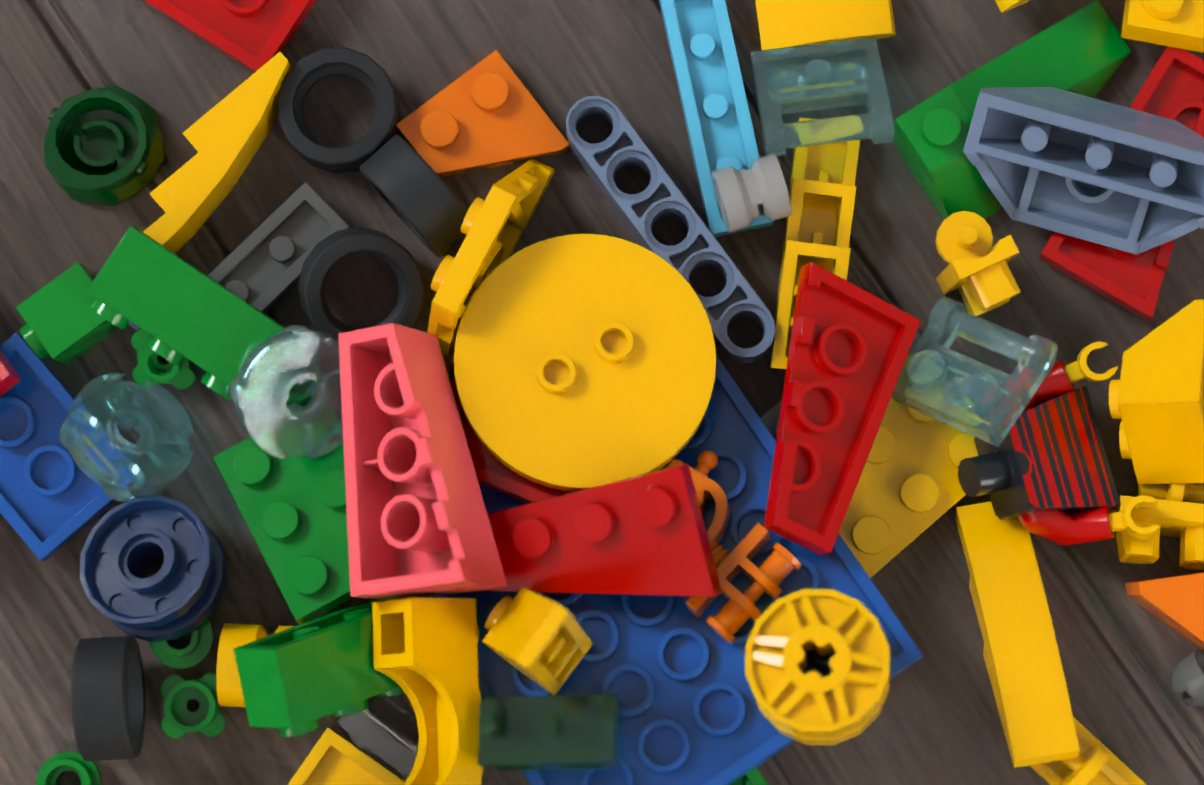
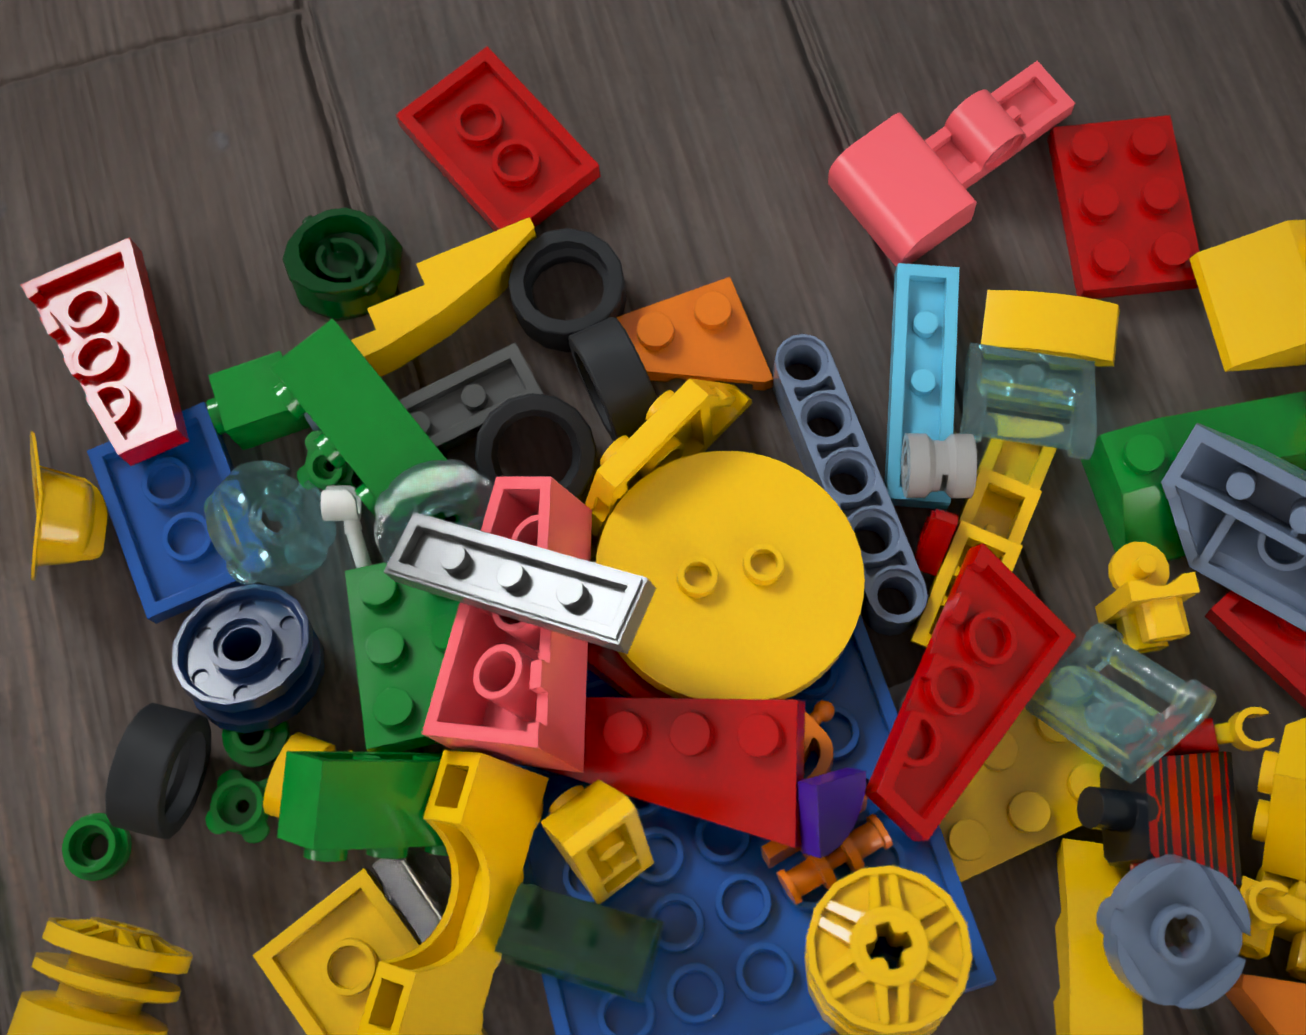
camera: 20 degrees right, 10 degrees down
(190, 394) = (343, 504): none -> white hand
(396, 433) = (522, 581): none -> tile
(736, 552) = (829, 809): none -> dark purple tile
(767, 265) = (934, 540): none -> red tile
(1101, 560) = (1136, 922): none -> sand blue plate

